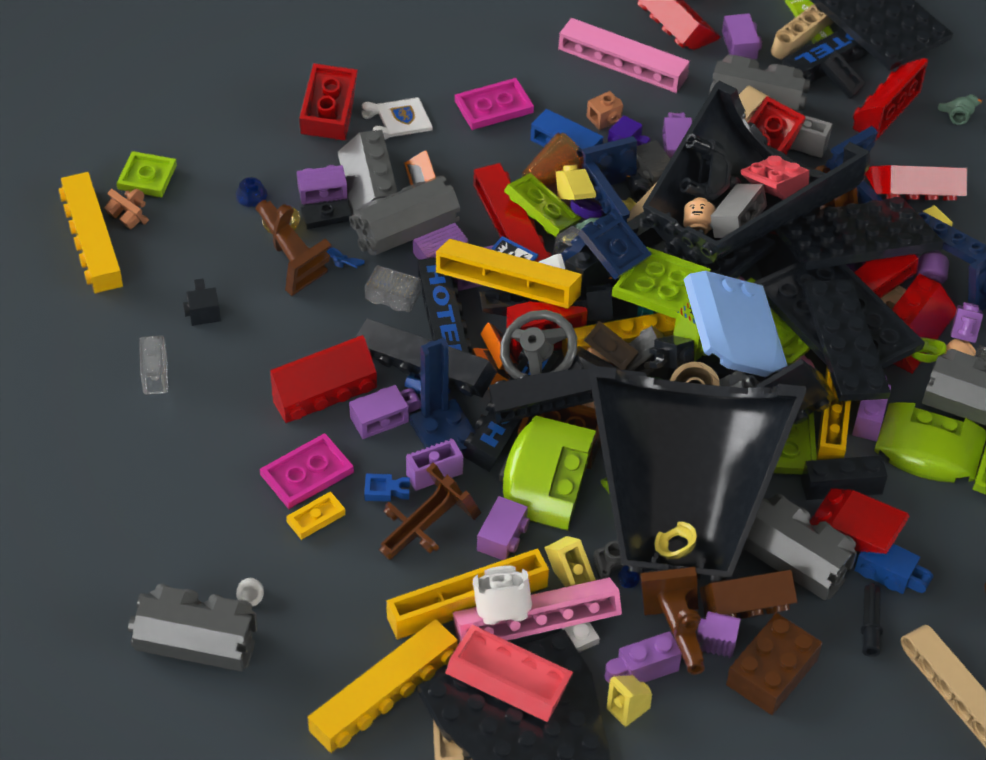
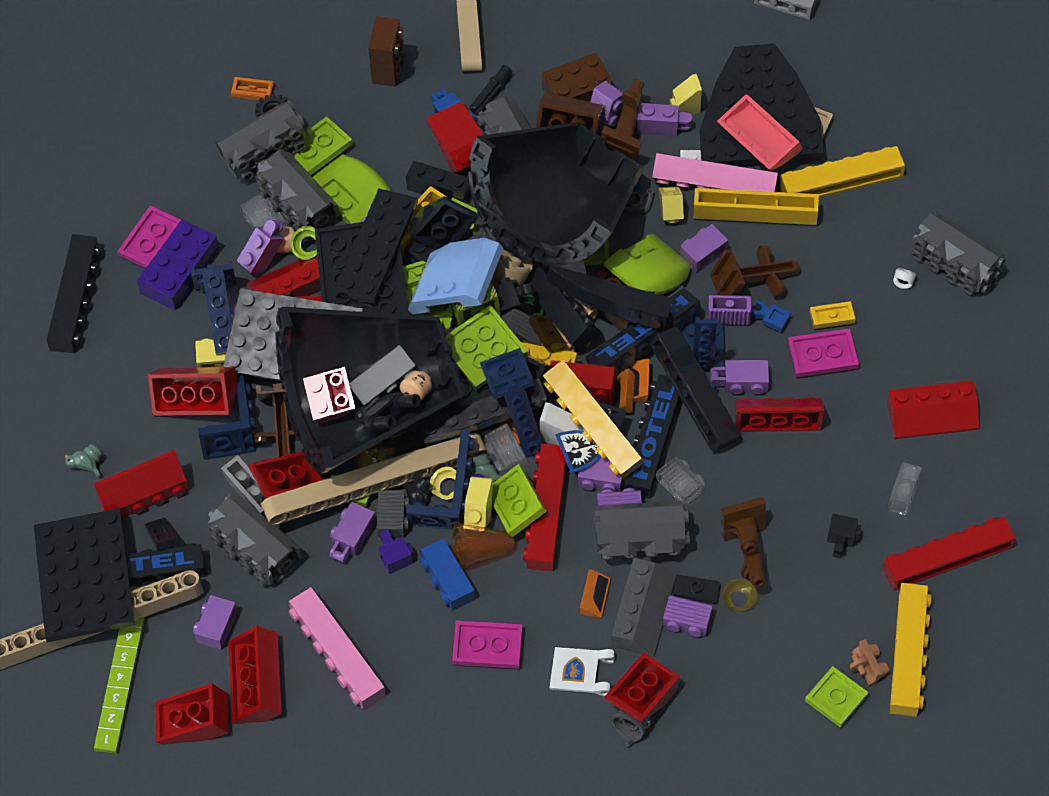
camera: 150 degrees left, 10 degrees up
(81, 326) = (949, 553): none -> red brick
(156, 460) = (933, 409): none -> red slope
(251, 192) = (752, 638): clear blue cone -> none
(340, 259) = (706, 532): blue piece -> none
(502, 594) = (736, 159): white brick -> none
(538, 343) = (610, 339): dark grey piece -> none
(604, 110) = (393, 590): nougat brick -> none
(683, 529) = (599, 166): light yellow piece -> none

